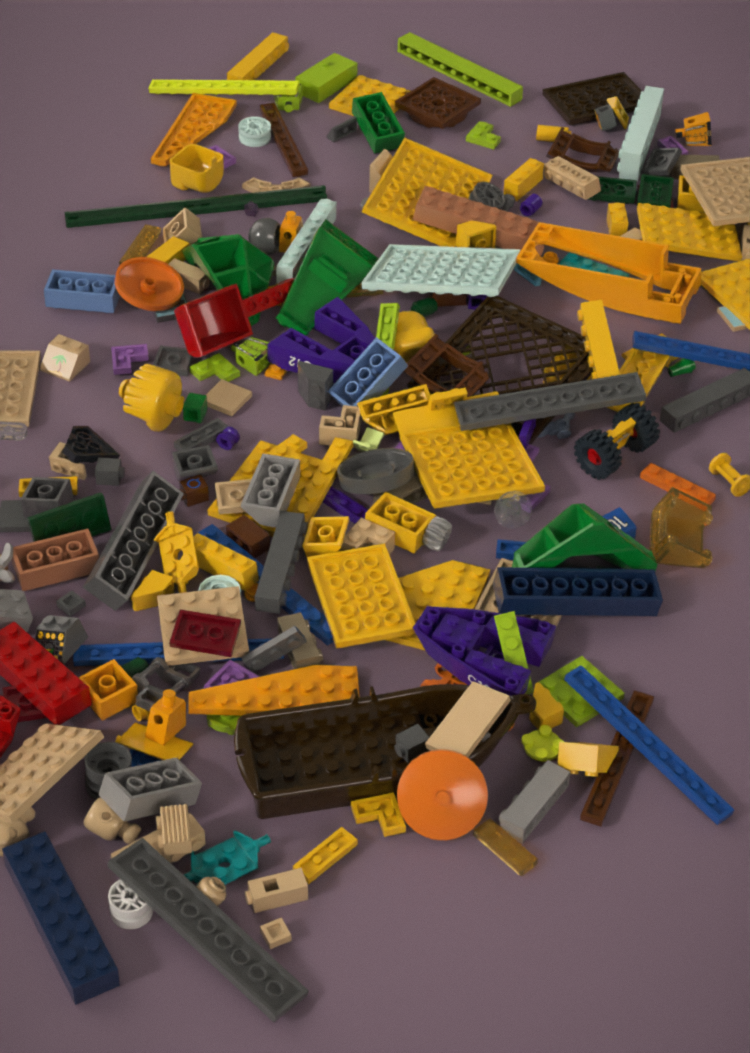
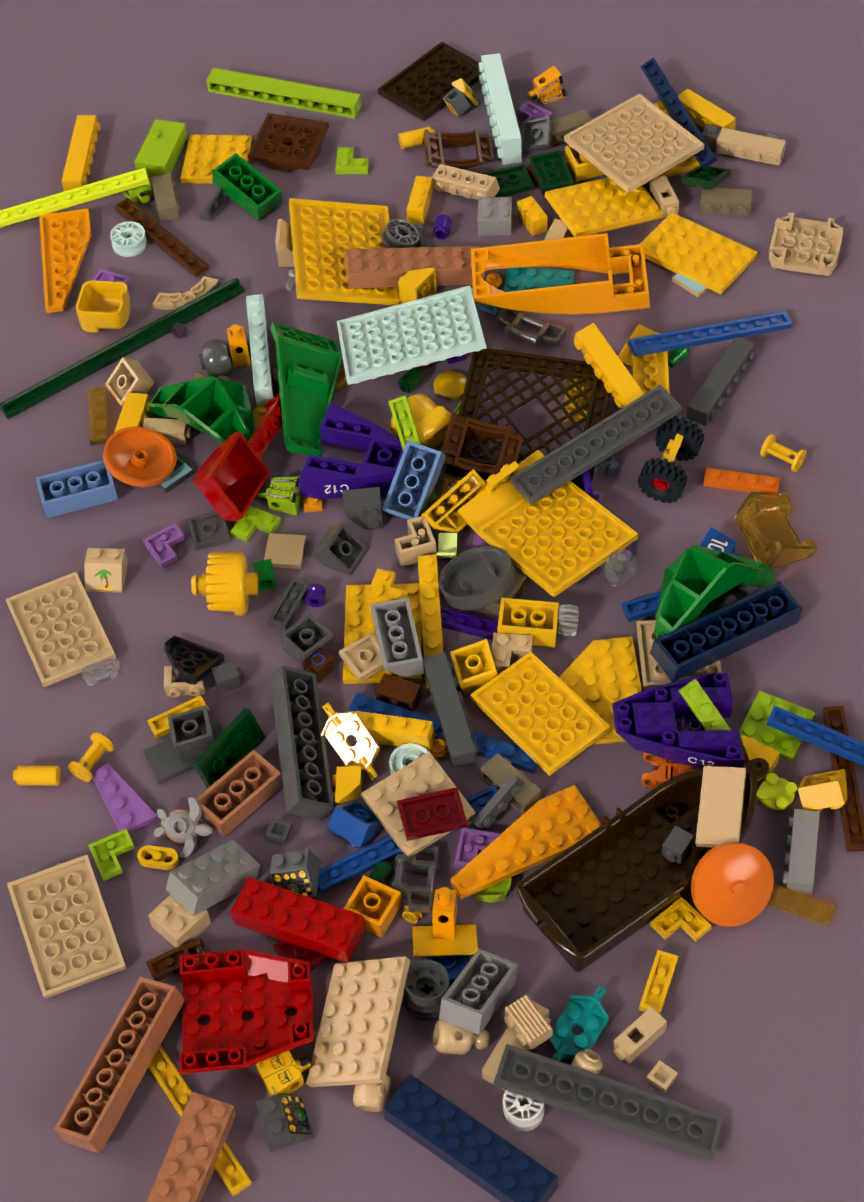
camera: 20 degrees left, 10 degrees up
(138, 621) = (354, 823): none -> blue slope
(273, 411) = (340, 549): none -> dark grey slope
(306, 112) = (166, 197): none -> dark tan brick
(453, 321) = (450, 384): none -> yellow dish
(555, 294) = (536, 339): none -> flat silver bar
(583, 210) = (494, 216): none -> light grey brick

